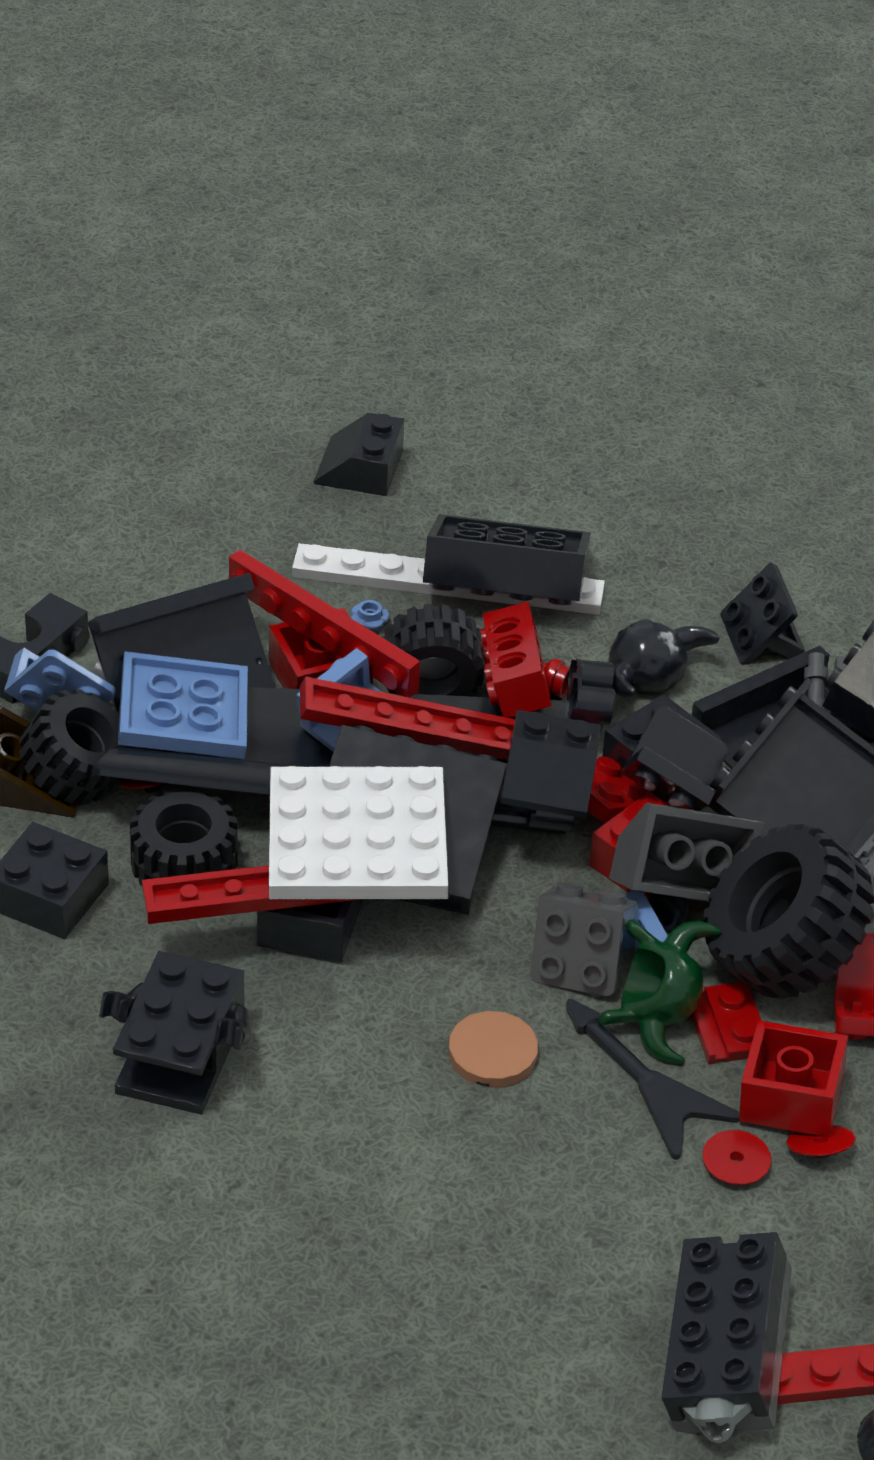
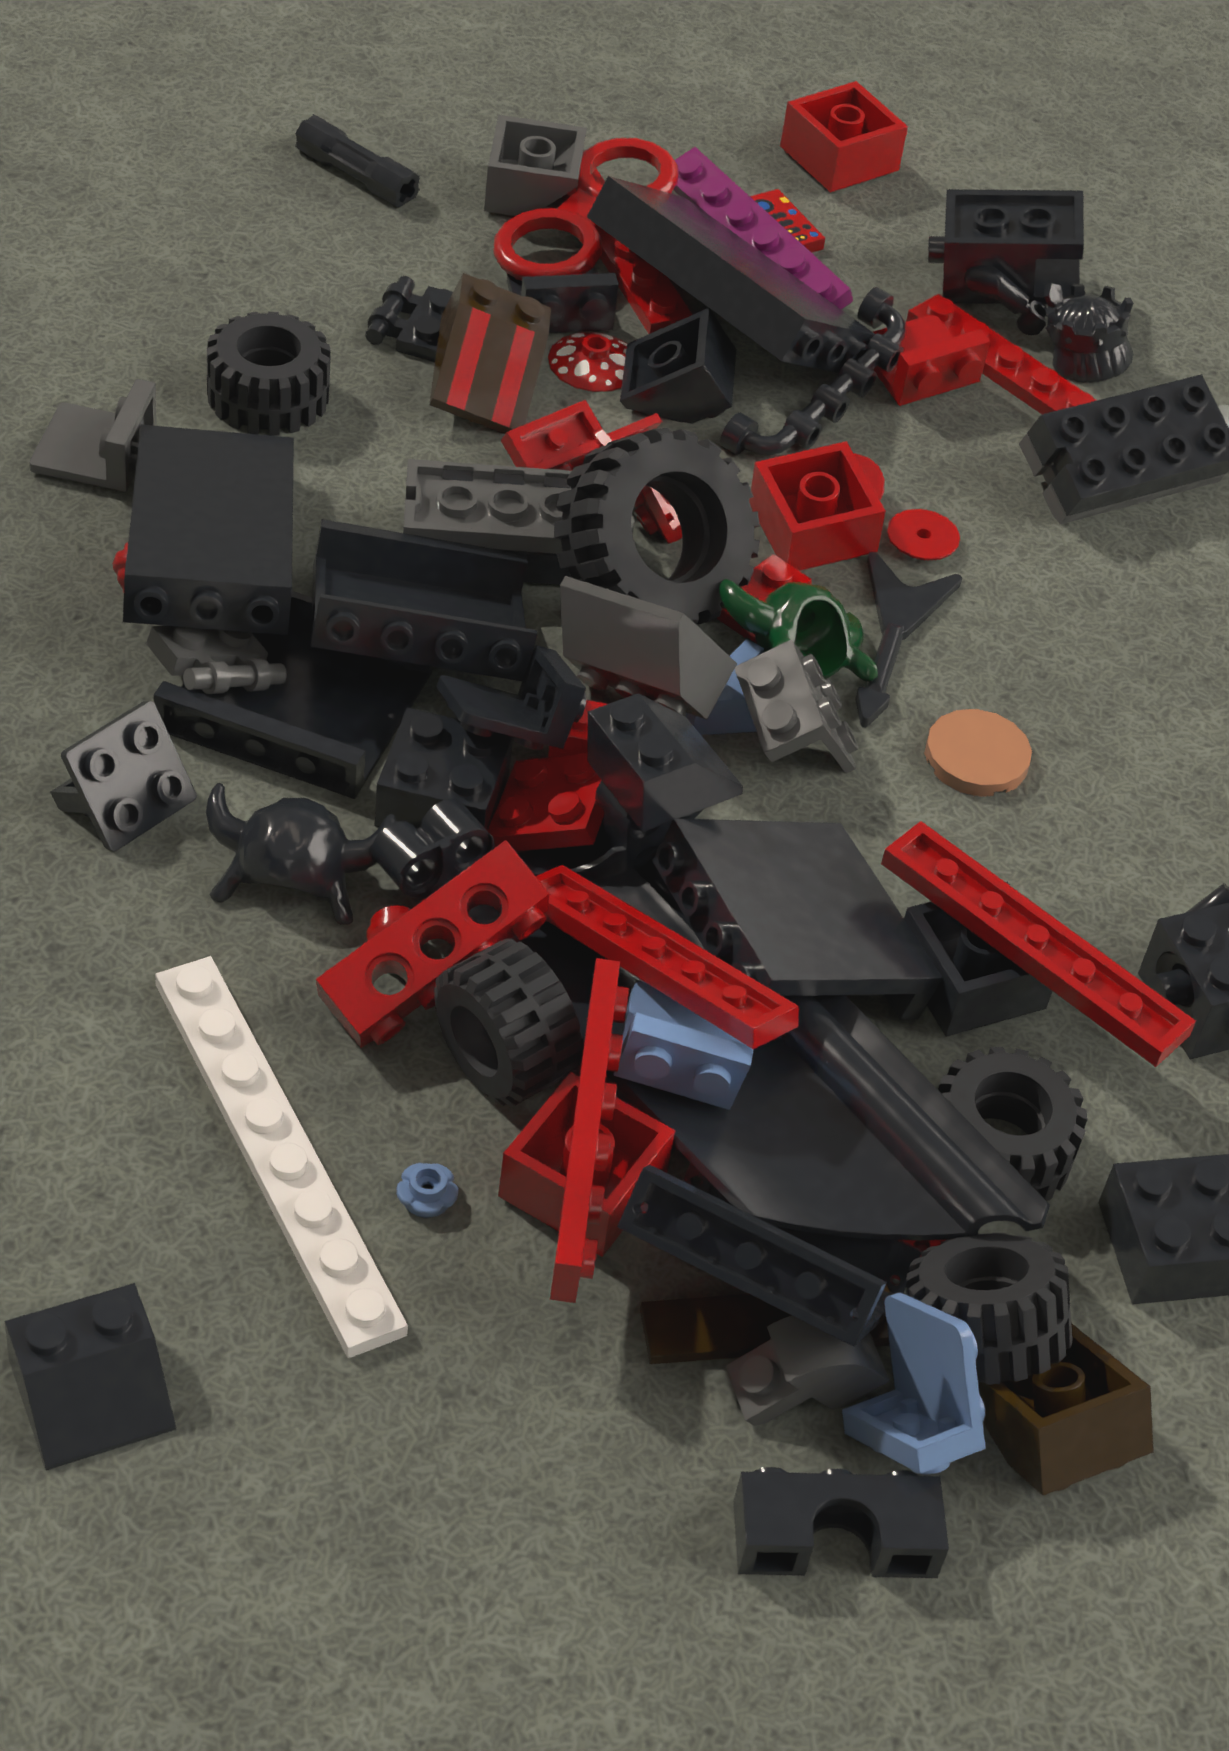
camera: 130 degrees left, 5 degrees up
(183, 705) = (860, 1185): medium blue plate -> none
(357, 833) = (910, 892): white plate -> none
(506, 559) = (223, 1055): black slope -> none

